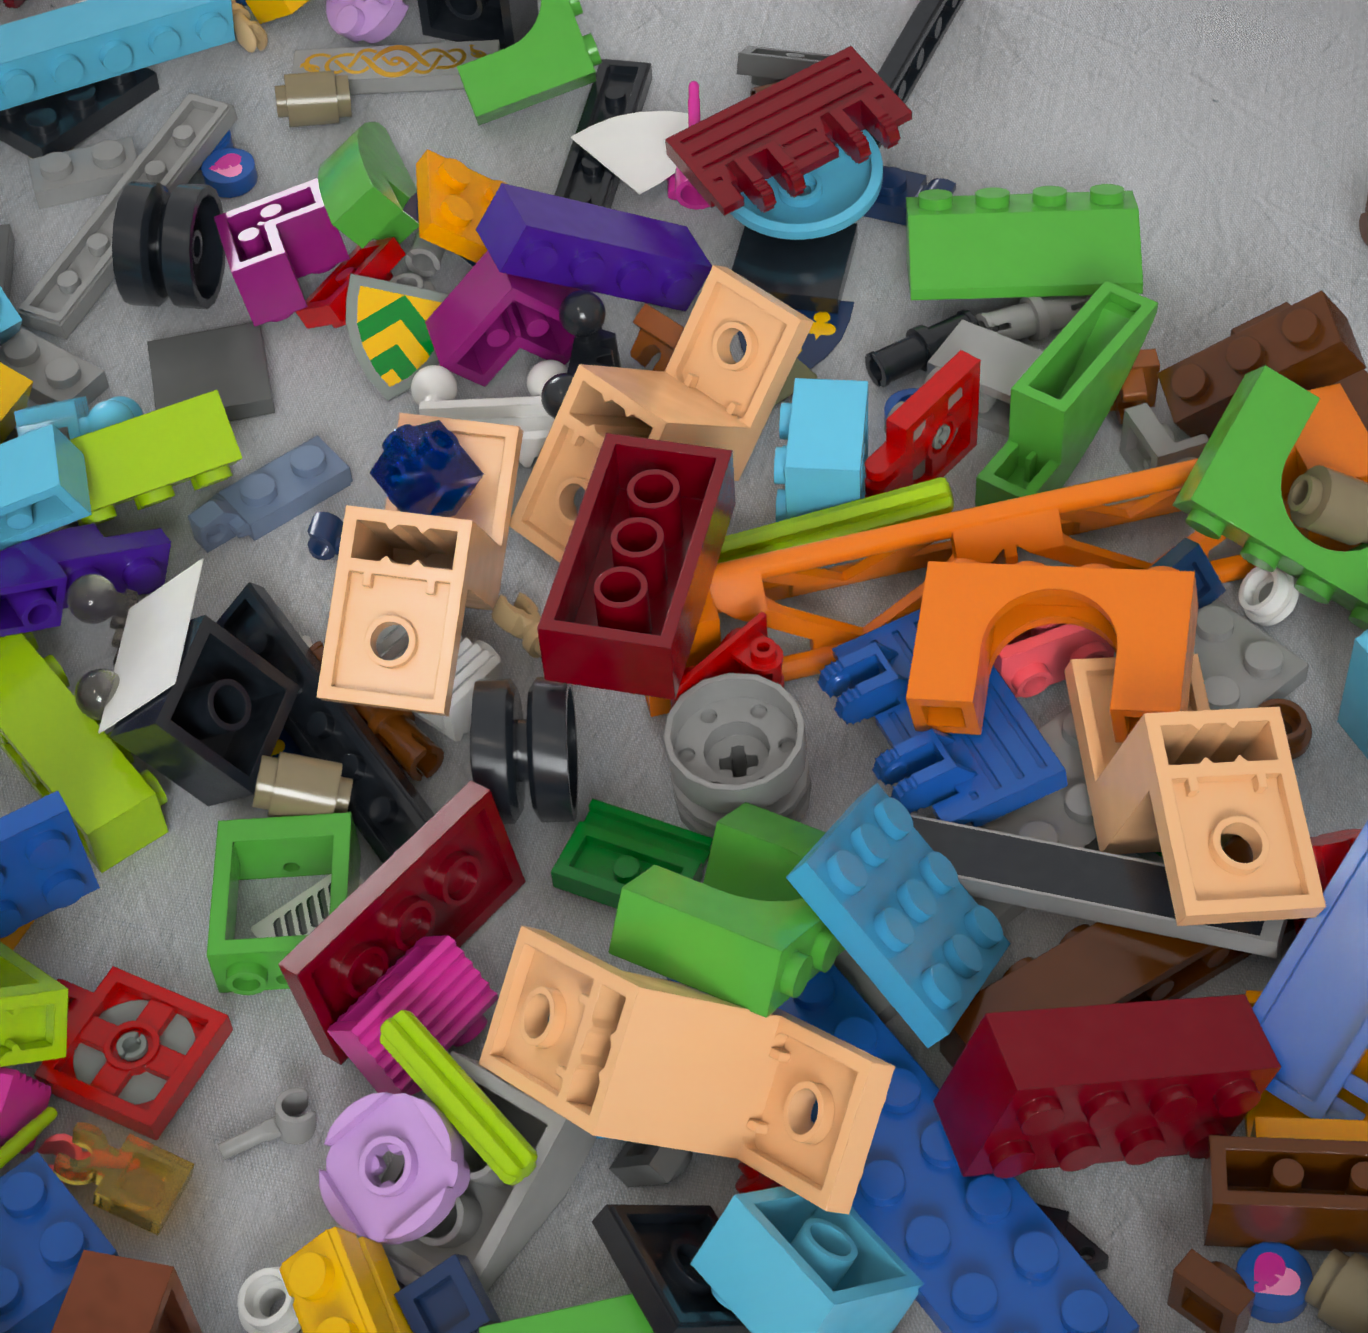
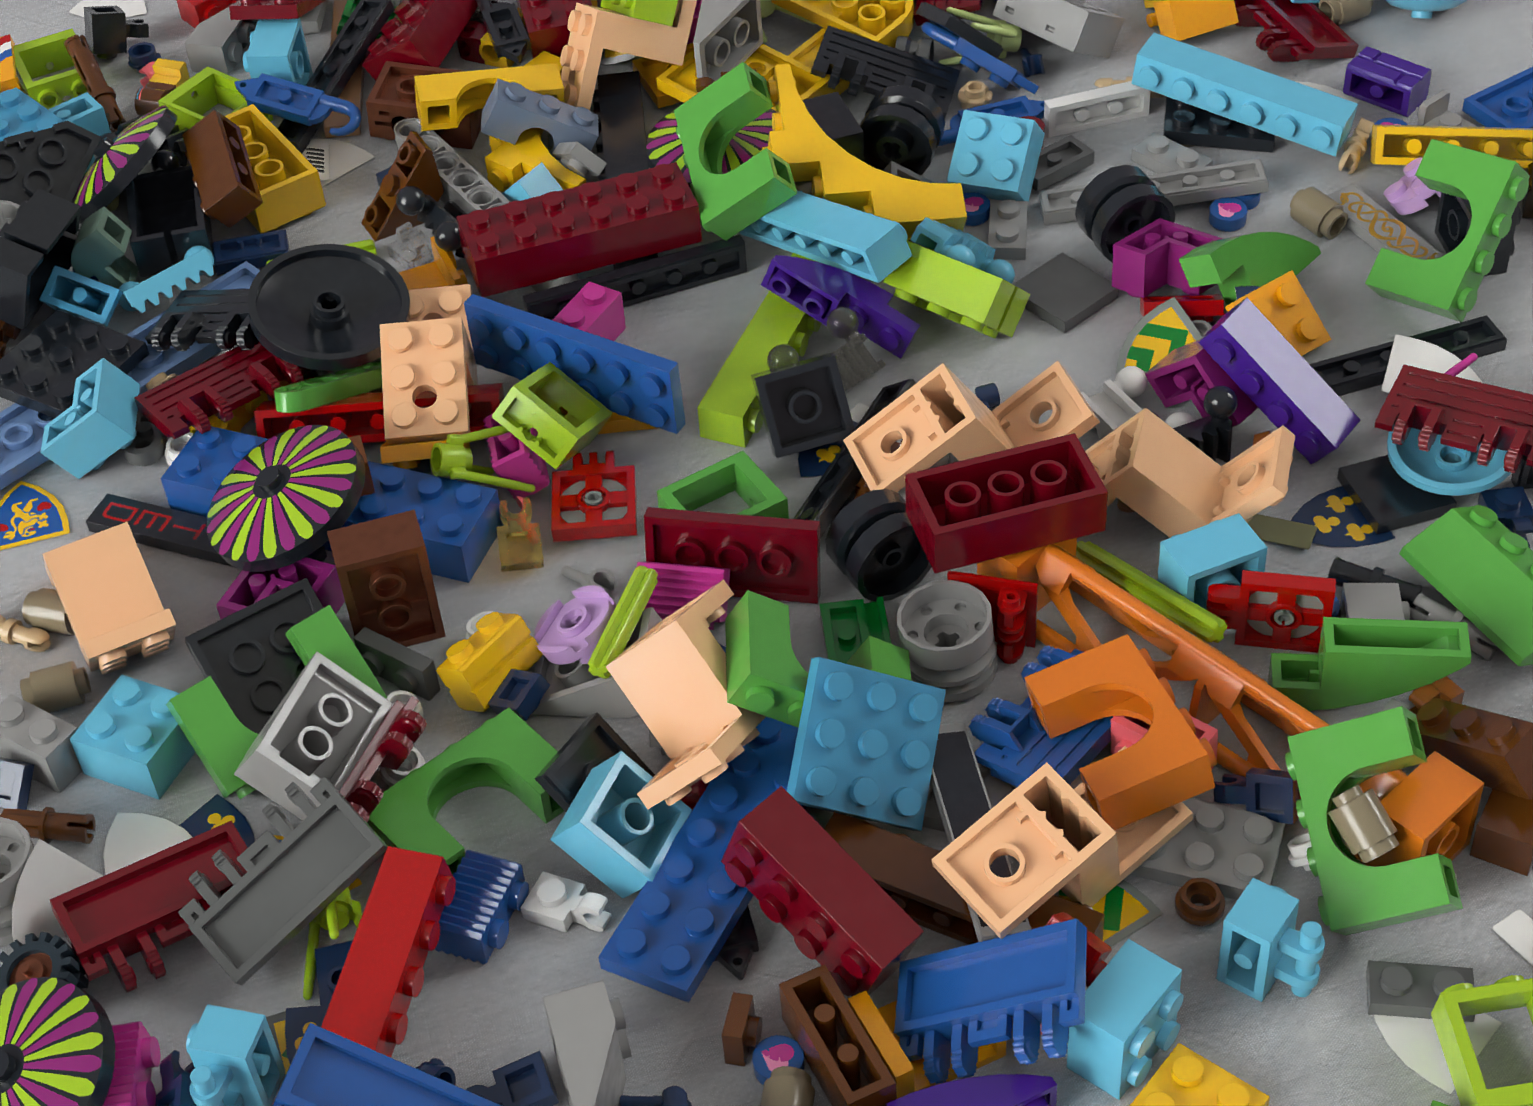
camera: 60 degrees right, 5 degrees down
(152, 645) = (817, 354): white sticker -> none
(271, 495) = (994, 360): sand blue hinge -> none
(301, 786) = (789, 471): dark tan brick -> none
(426, 470) = (1020, 392): clear blue brick -> none

